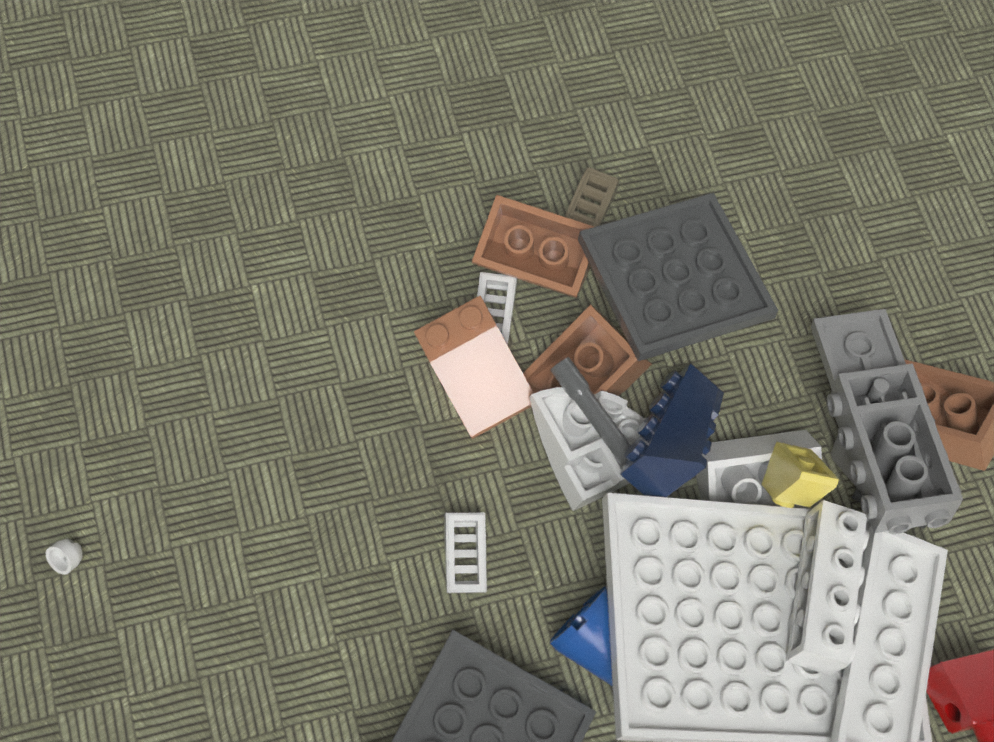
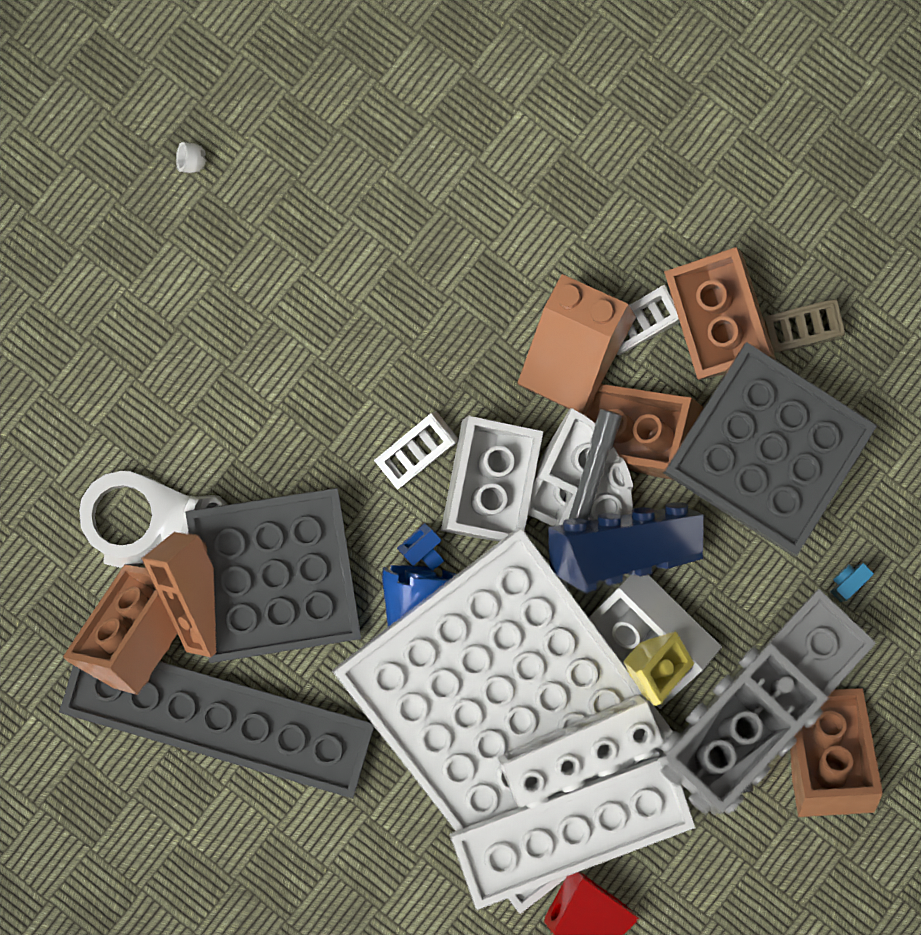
camera: 65 degrees right, 20 degrees up
(538, 506) = (491, 479): none -> white slope
(552, 604) = (421, 546): none -> blue tile
(815, 303) = (850, 580): none -> dark azure plate

